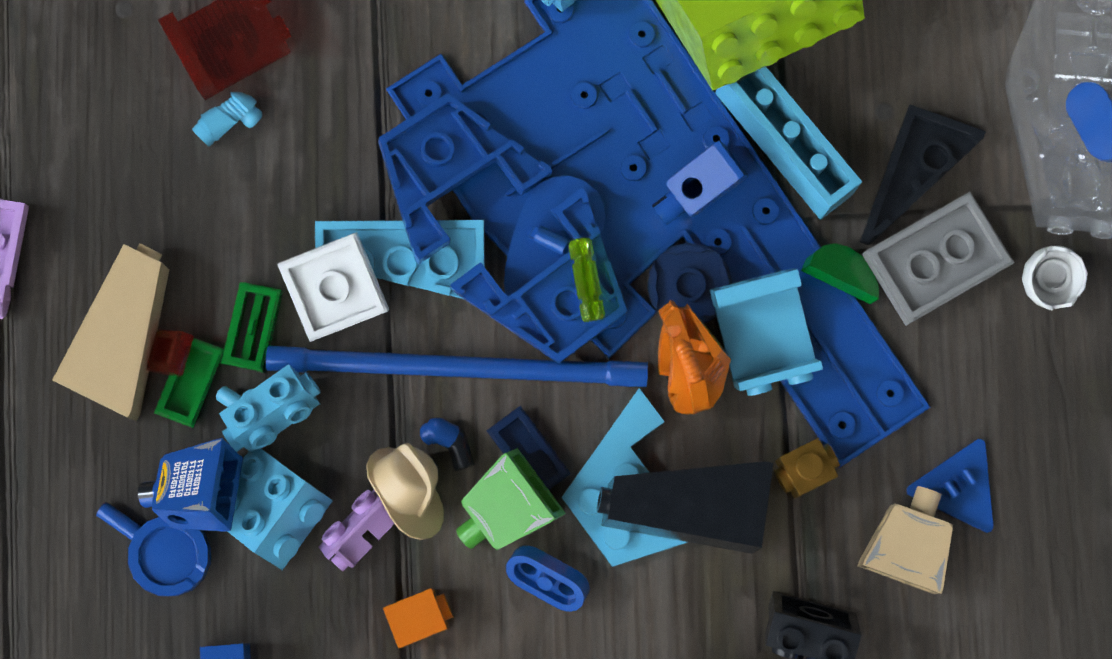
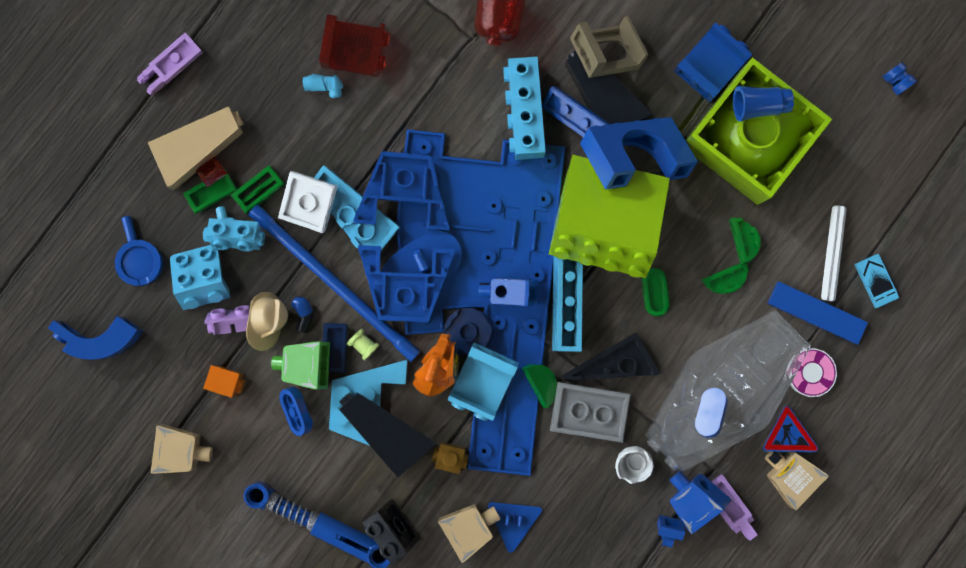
camera: 30 degrees right, 5 degrees up
(196, 487) = (172, 243): blue torso -> none
(563, 415) = (363, 344): none -> yellowish green bush
(586, 279) = (420, 293): clear neon green axle -> none
(890, 36) = (655, 292): none -> green tile

